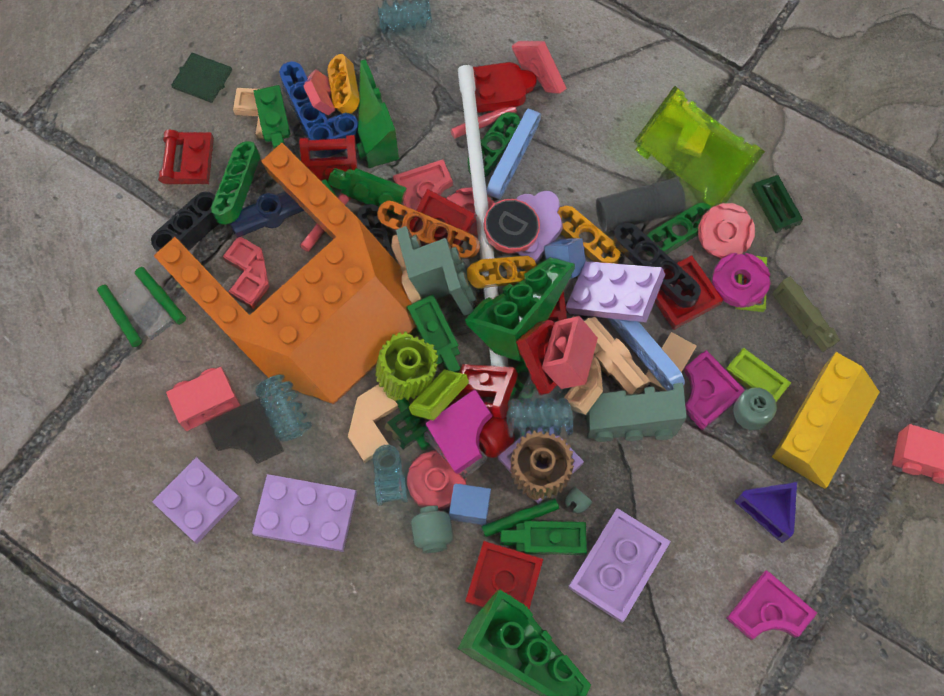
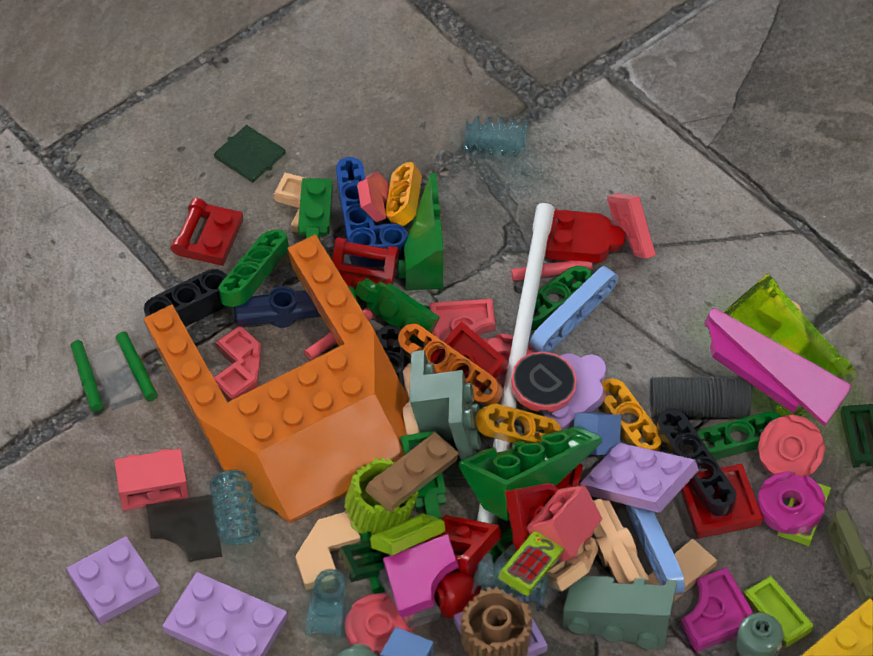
camera: 15 degrees right, 15 degrees down
(428, 340) = (412, 472): none -> medium nougat plate
(556, 401) = (530, 563): none -> tile
(700, 167) = (774, 368): none -> dark pink wedge

